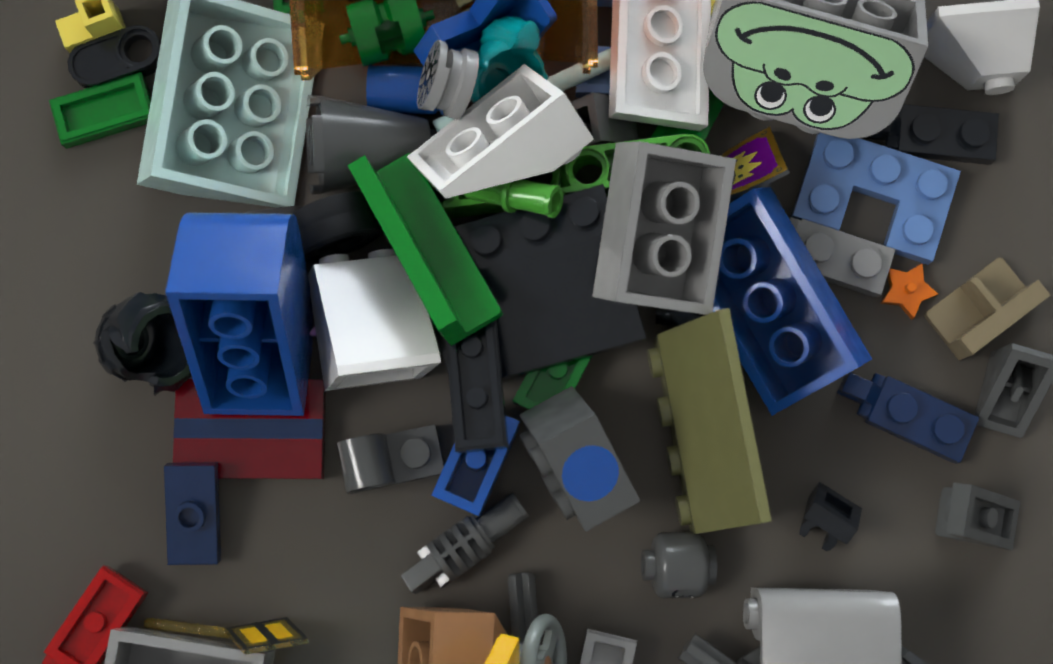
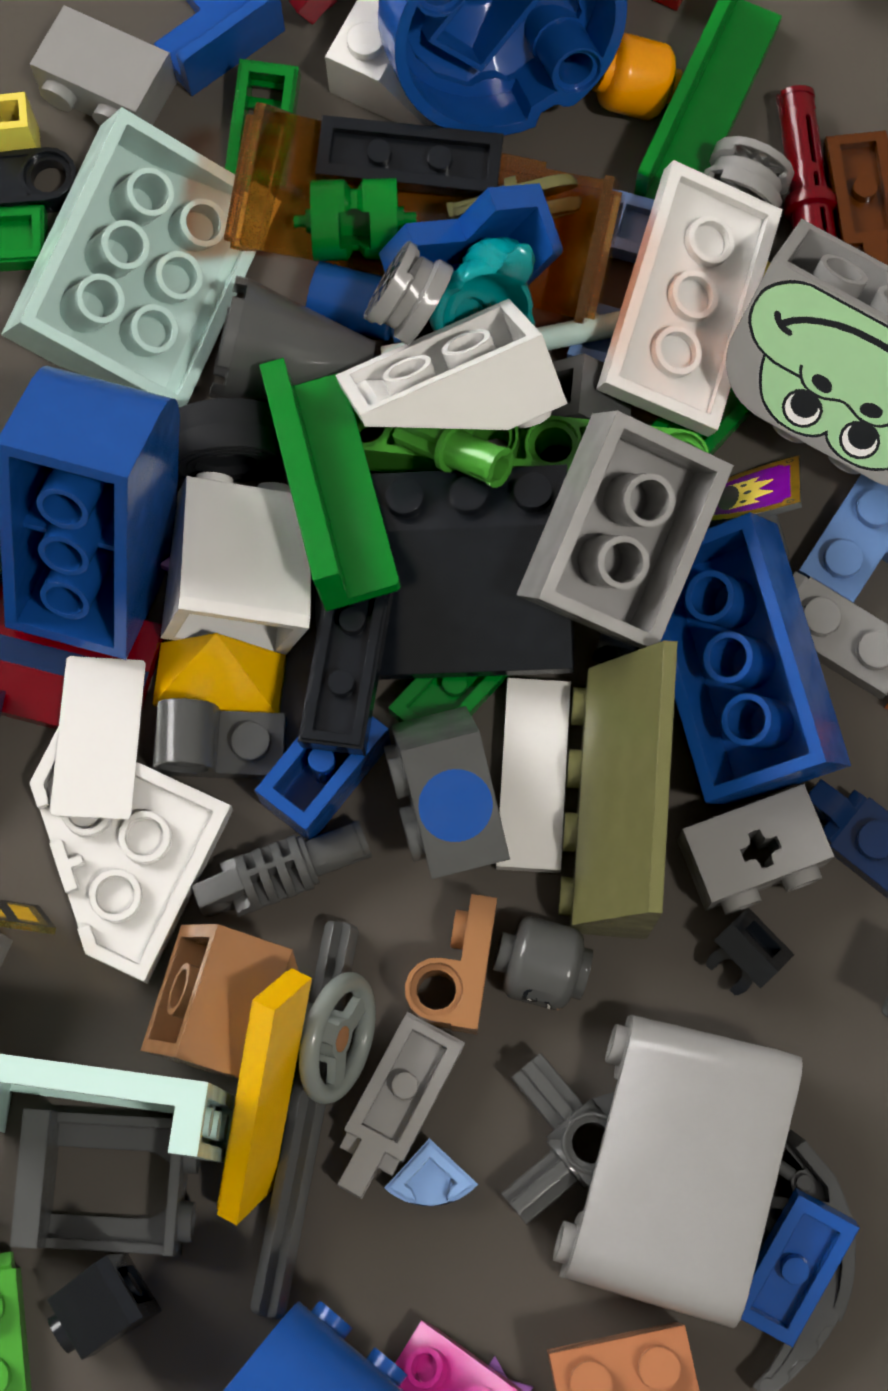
camera: 15 degrees right, 5 degrees down
(298, 481) = (98, 738): none -> white sticker
(340, 558) = (133, 873): none -> white plate
(377, 408) = (221, 672): none -> yellow slope
(622, 558) = (473, 936): none -> medium nougat plate
(634, 419) = (534, 773): none -> white tile
(832, 414) = (782, 823): none -> light grey brick

